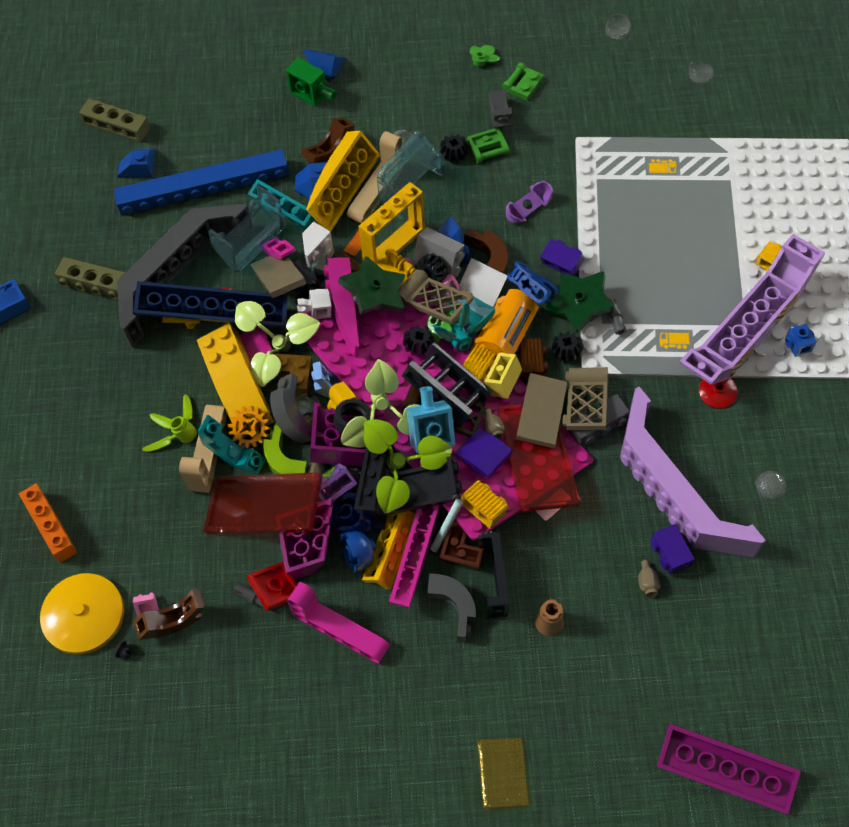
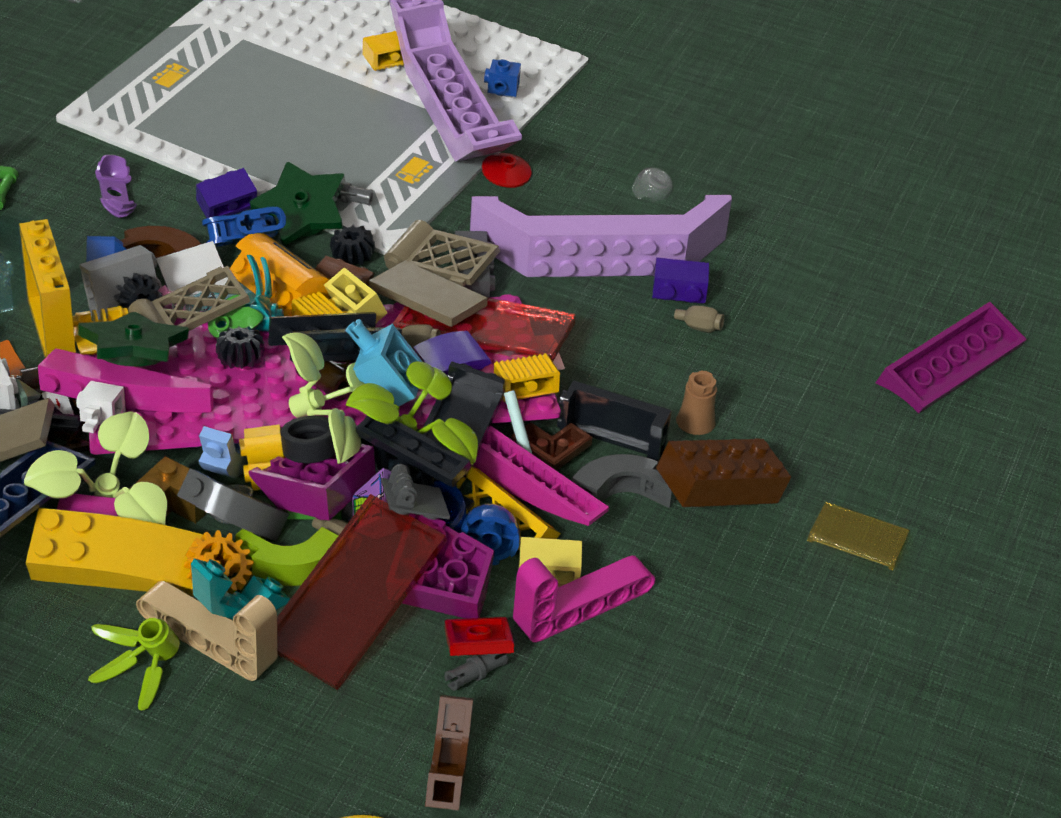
camera: 70 degrees left, 20 degrees down
(145, 603) = (405, 788): bright pink tile -> none
(330, 496) = (407, 497): none -> dark grey hinge
(354, 595) = (560, 557): none -> light yellow brick
(488, 661) = (723, 472): none -> reddish brown brick

